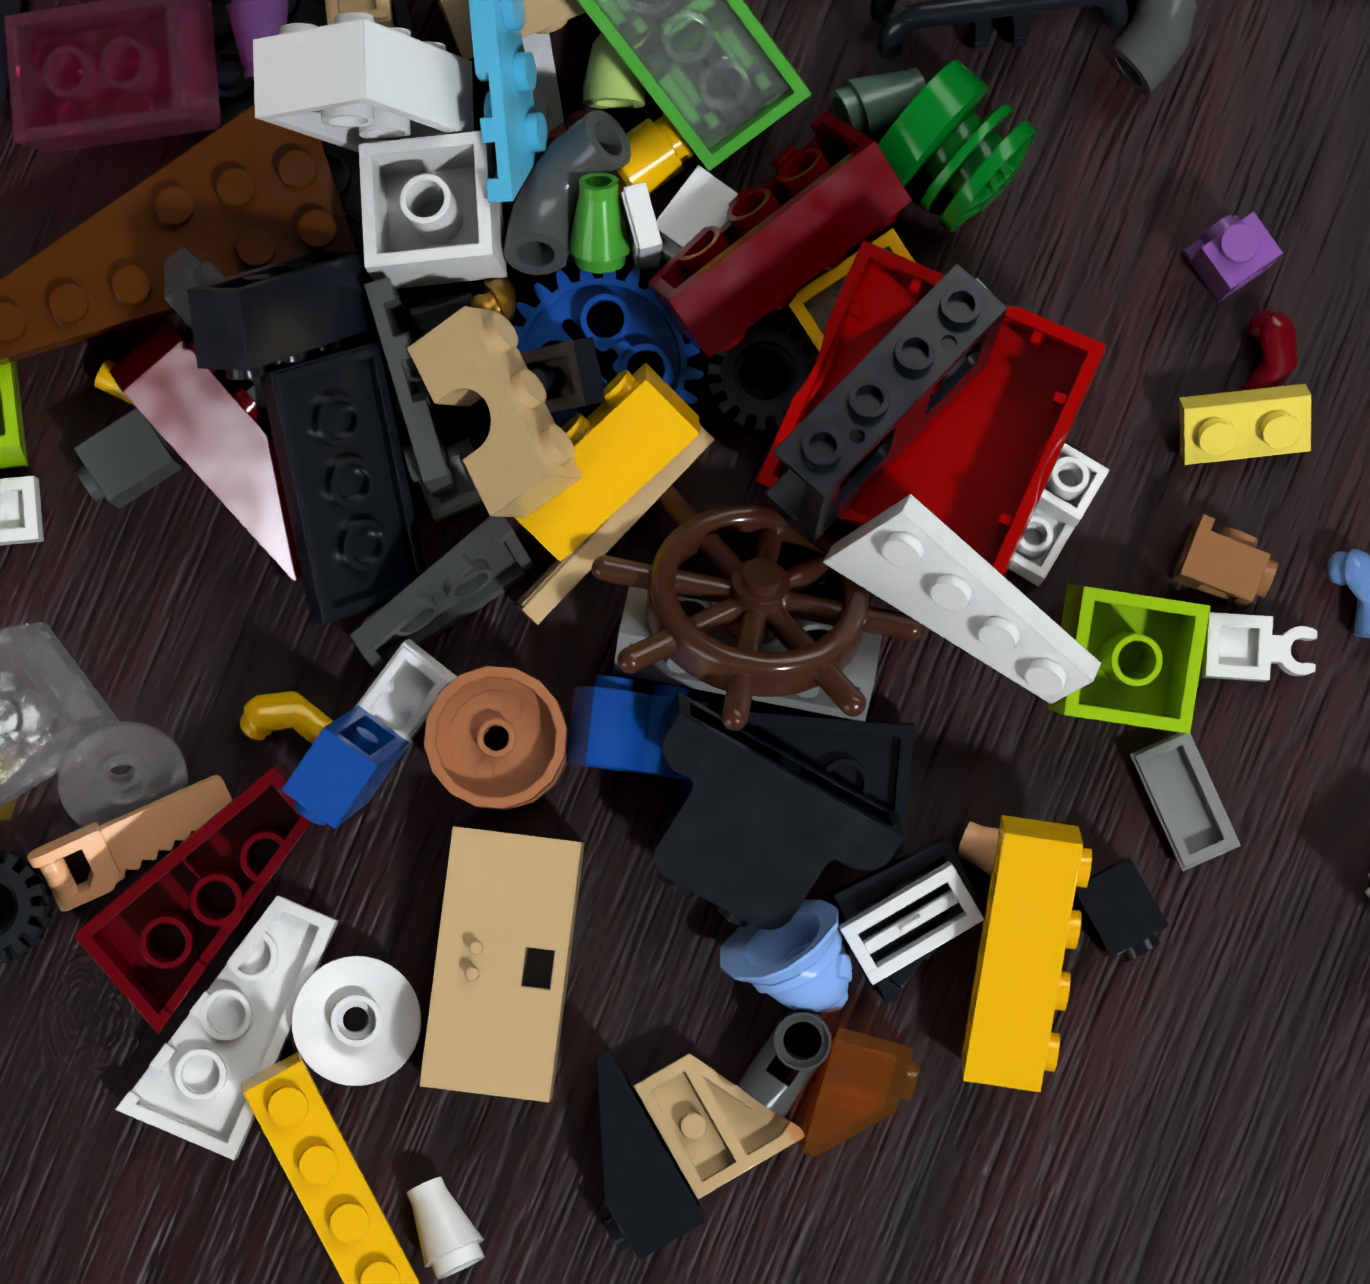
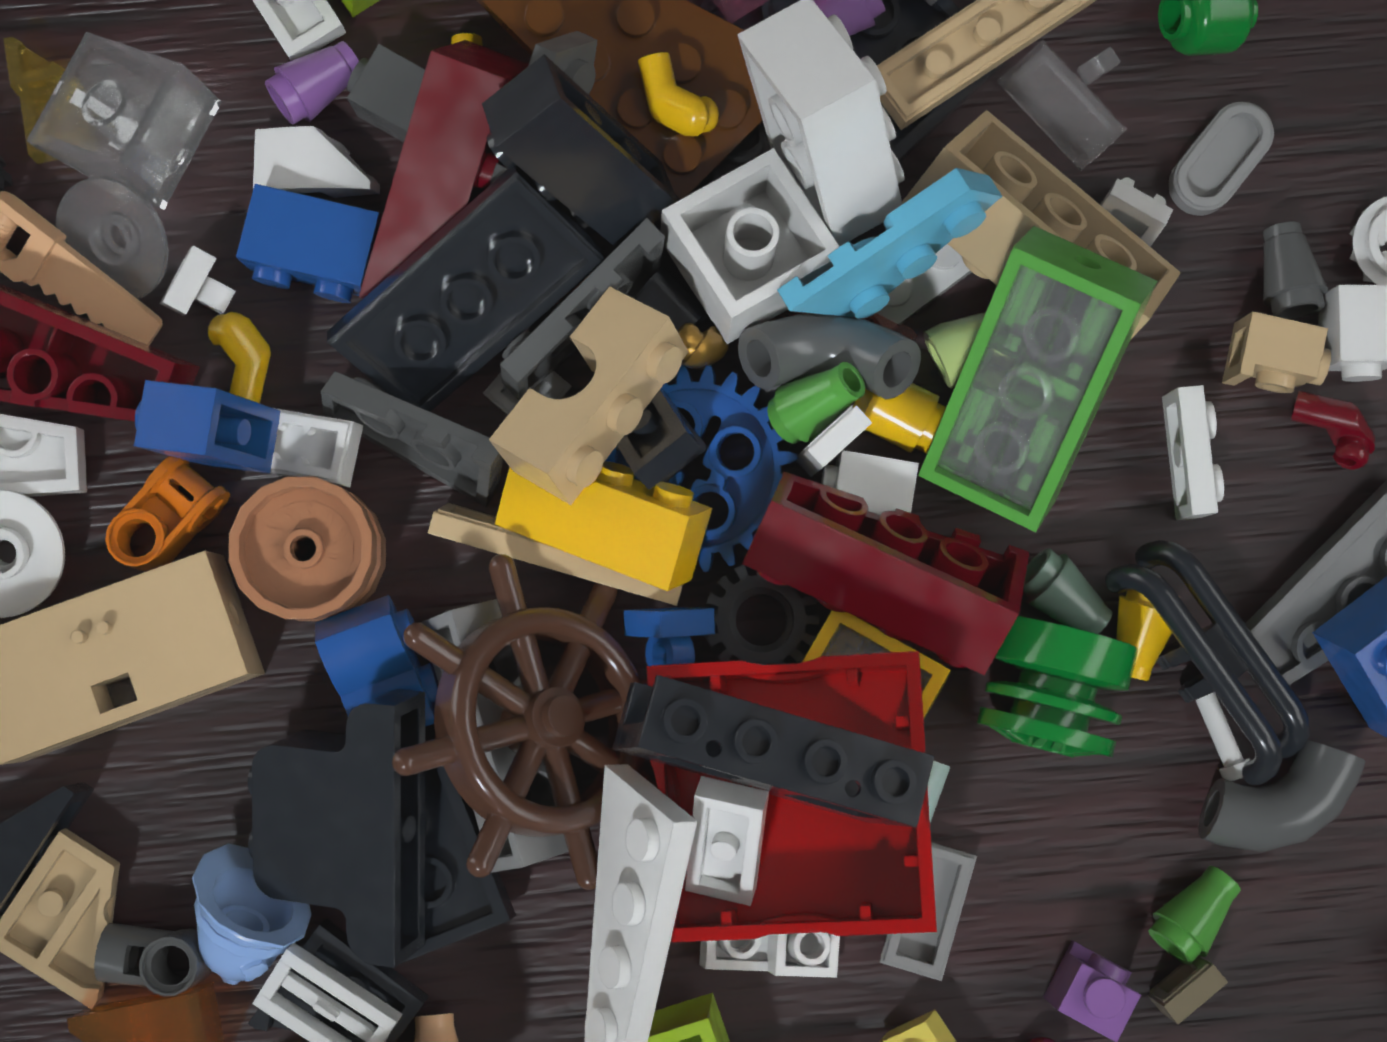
camera: 55 degrees right, 0 degrees up
(70, 530) = (311, 82): none -> medium lavender cone
(142, 572) = (308, 162): none -> white slope
(201, 727) = (193, 284): none -> white tile
(220, 603) = (307, 242): none -> blue brick
(272, 212) = (672, 104): none -> yellow arm
(397, 851) = (168, 511): none -> orange piece
(734, 458) = (669, 631): none -> blue tile
(941, 484) = (726, 840): none -> white plate
(942, 44) = (1142, 628): none -> yellow cone
(1071, 30) = (1222, 737): none -> white piece
(1119, 379) = (929, 952): none -> light grey tile
(1214, 136) = (1194, 916): none -> bright green cone
(1271, 173) = (1186, 989): none -> dark tan tile

